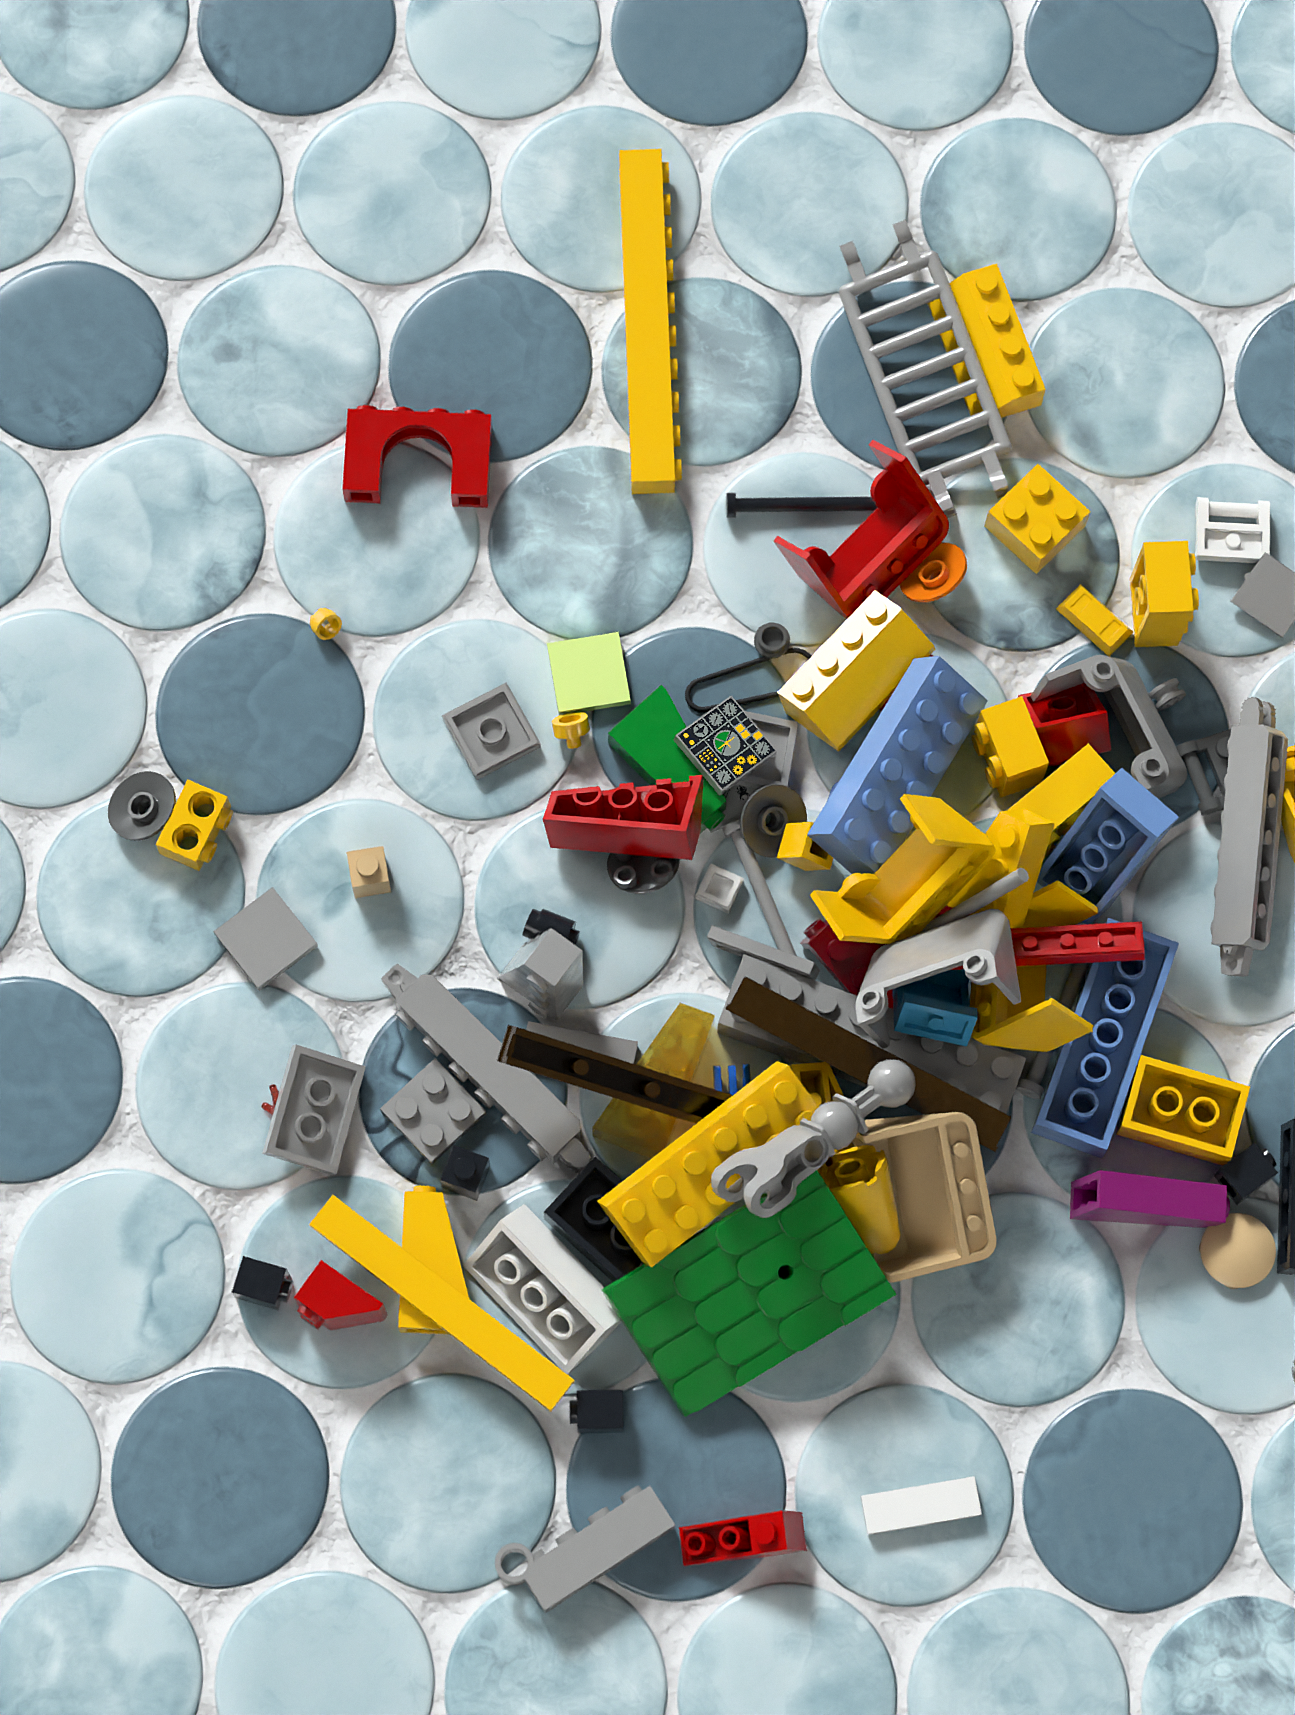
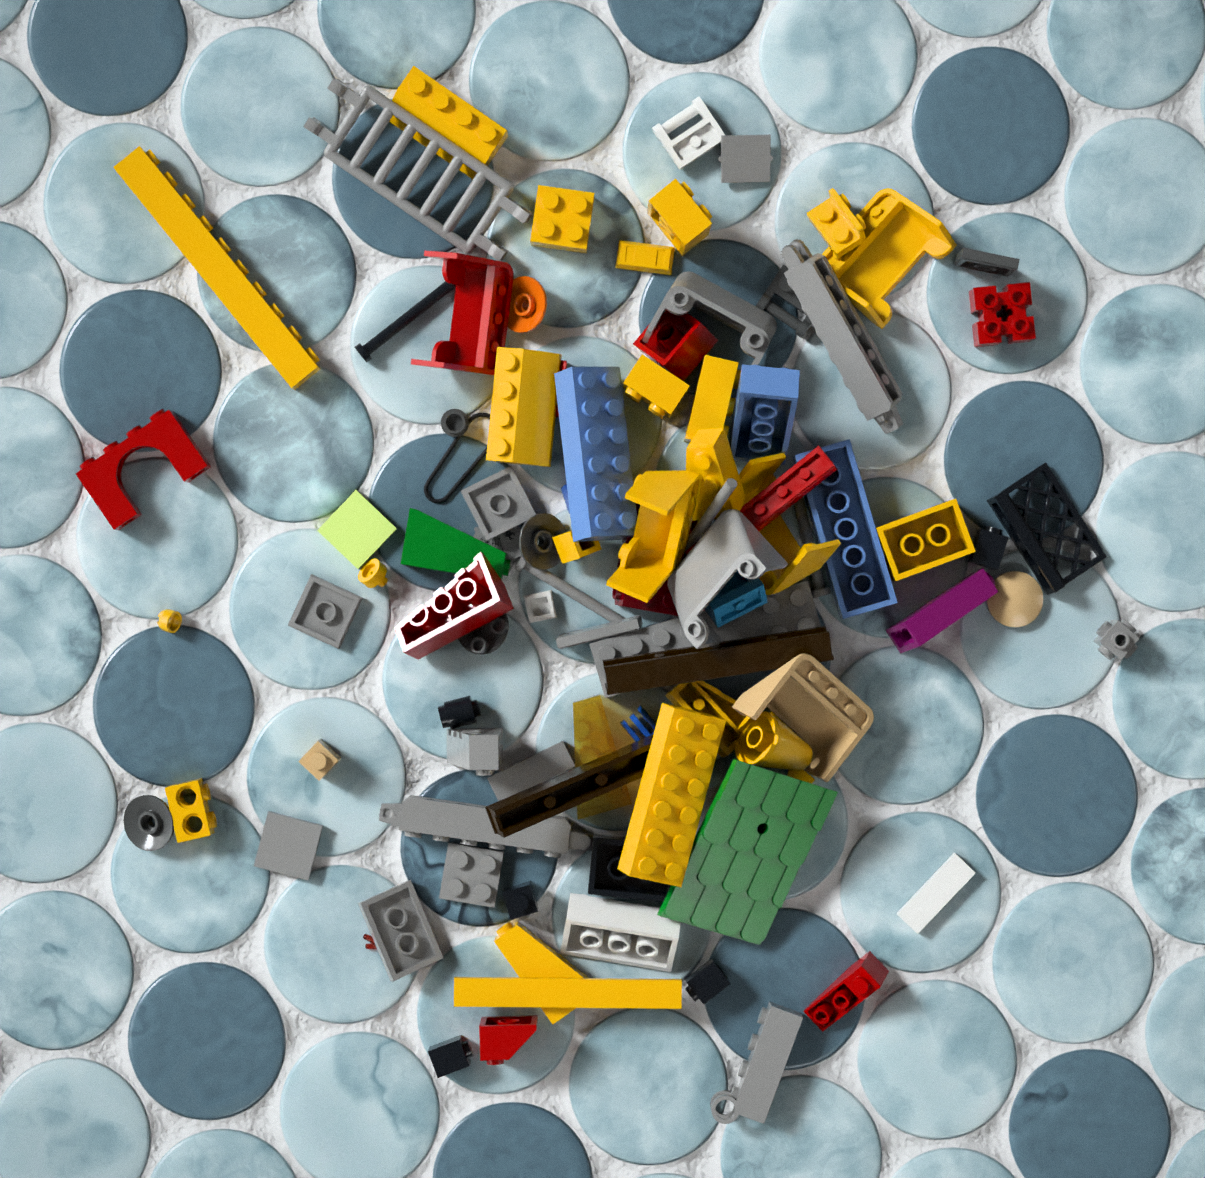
camera: 30 degrees left, 15 degrees up
(725, 745) = (479, 518): tile -> none
(804, 1148) = (717, 773): light grey piece -> none
(1167, 694) = (725, 275): light grey bush -> none

